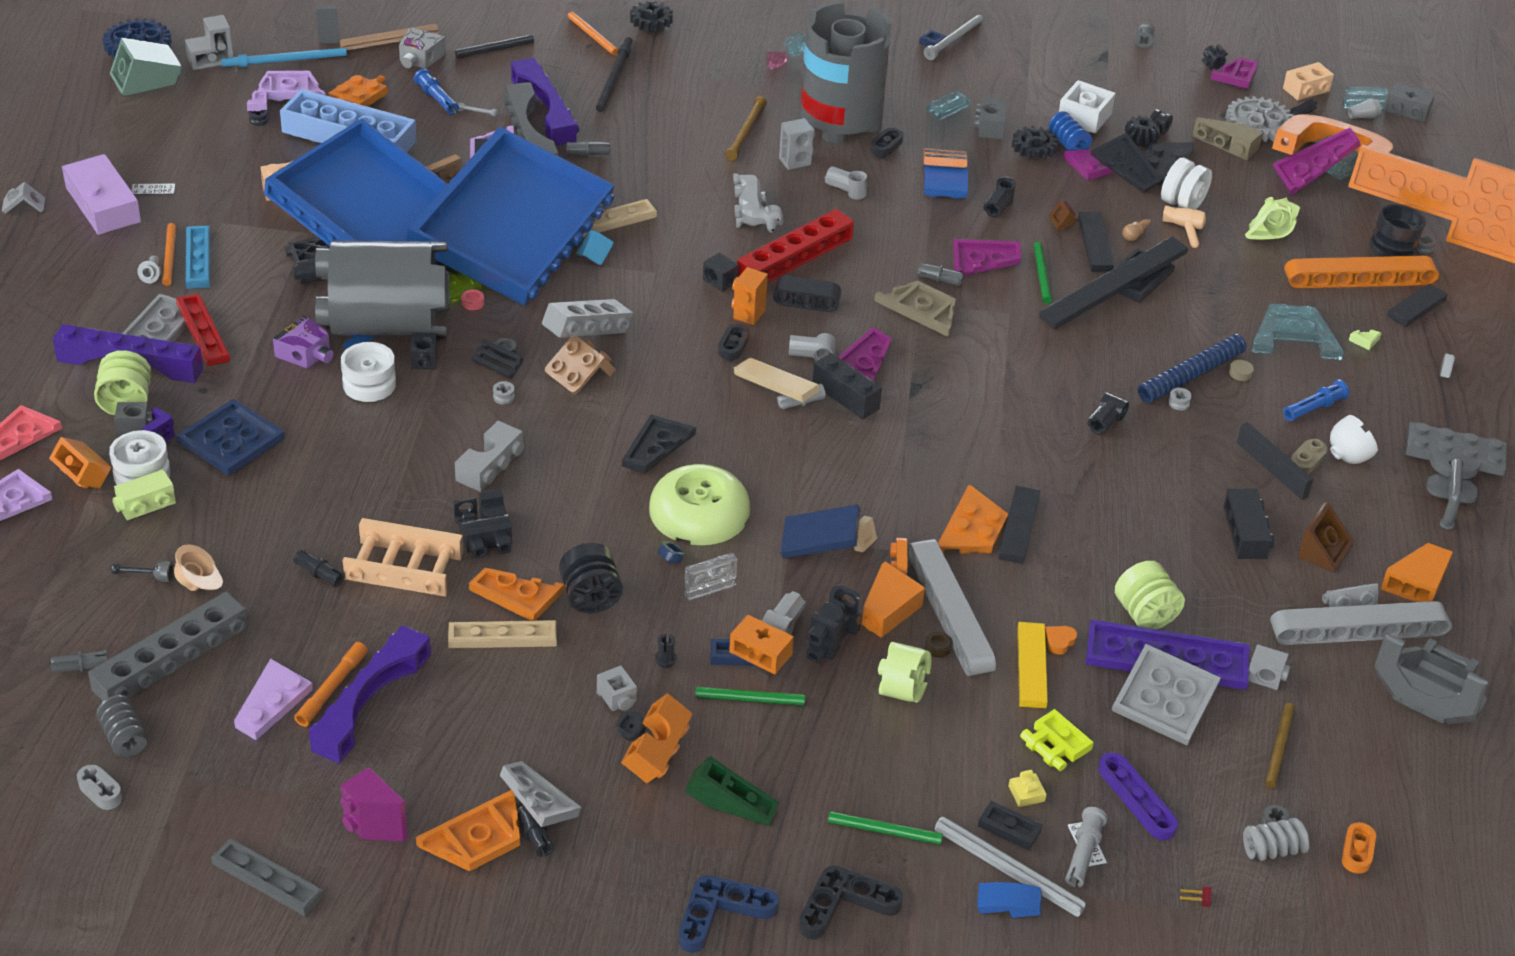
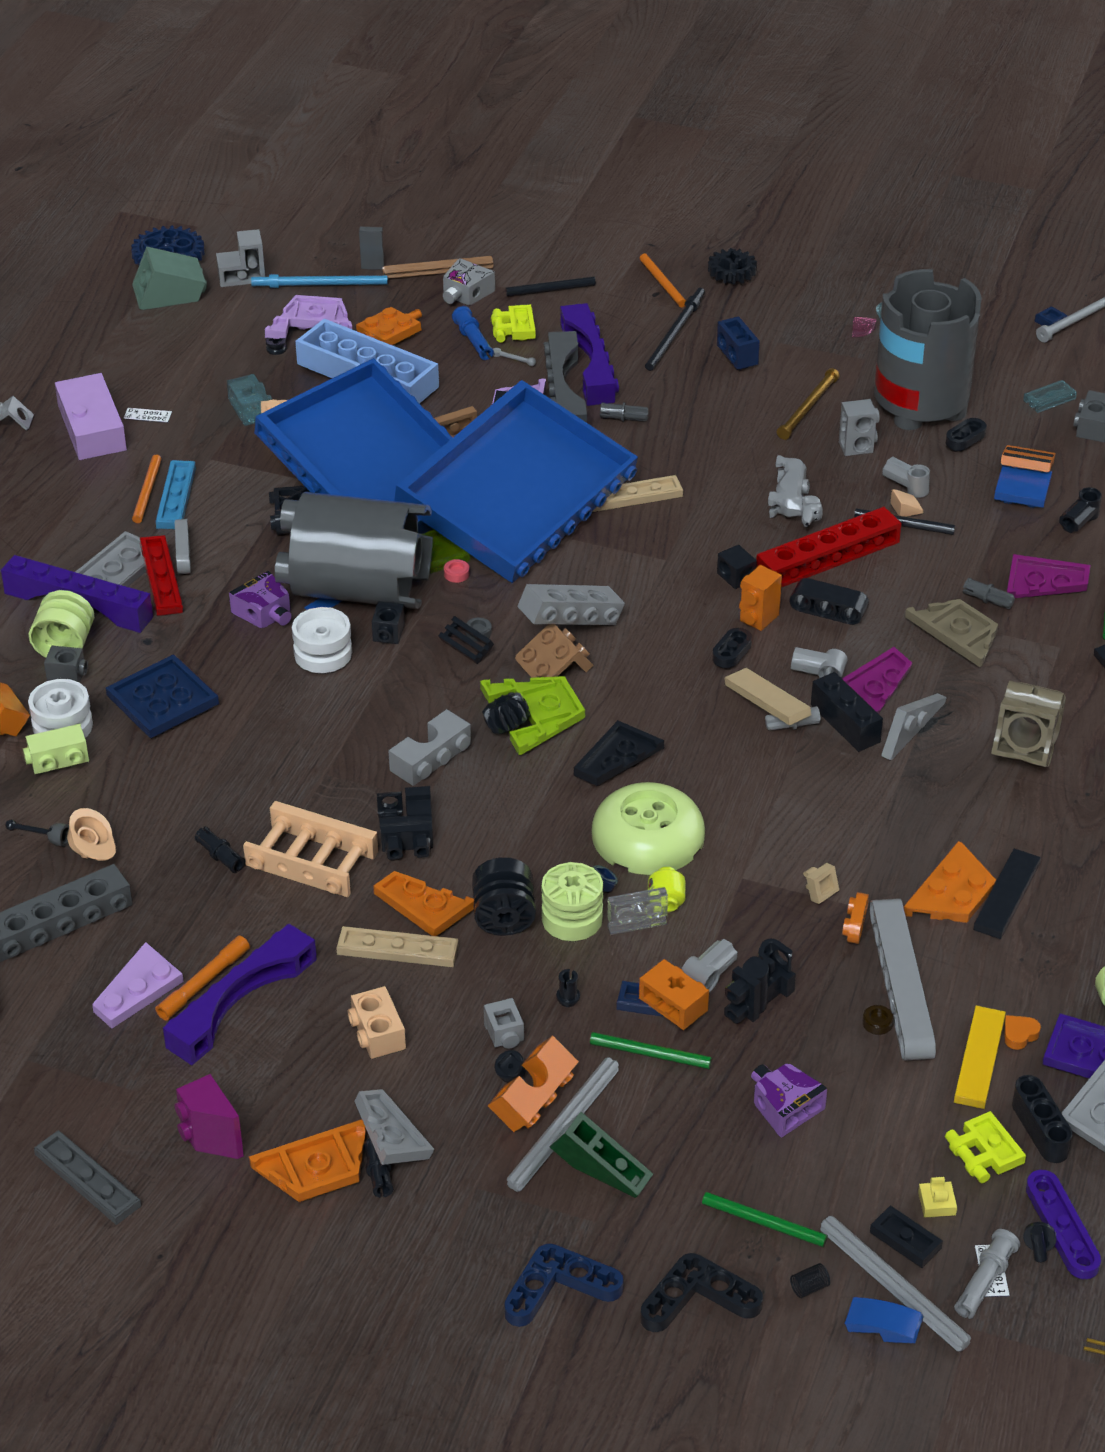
camera: 15 degrees right, 0 degrees up
(149, 270) = (122, 504): light grey plate -> none
(161, 424) = (92, 677): dark purple bracket -> none
(217, 302) = (182, 546): none -> light grey beam
(244, 166) = (246, 397): none -> clear light blue brick
(471, 78) = (516, 322): none -> neon yellow plate
(502, 703) = (377, 1022): none -> light nougat brick
(503, 392) = (464, 684): light grey bush -> none
(551, 418) = (506, 713): none -> black gear
(582, 404) = (550, 703): none -> lime wing
(595, 247) = (603, 525): dark azure panel -> none
(651, 575) = (572, 901): none -> yellowish green wheel
(674, 81) = (738, 343): none -> dark blue brick
(695, 758) = (579, 1103): none -> light grey axle
(730, 544) = (674, 884): none -> neon yellow head
(820, 531) = (773, 874): dark blue tile -> none
(849, 205) = (905, 503): none -> light nougat slope
(864, 221) = (918, 523): none -> black bar
(879, 720) = (787, 1097): none -> medium lavender torso
(891, 600) = (834, 963): orange slope -> none
(902, 387) = (909, 721): none -> light grey wing
(904, 672) = (827, 1046): yellowish green brick -> none
(947, 878) = (810, 1289): none -> black piece
(1002, 394) = (1023, 740): none -> dark tan piece
(1098, 710) = (1042, 1119): none -> black beam
(1122, 810) = (1040, 1238): none -> black plate

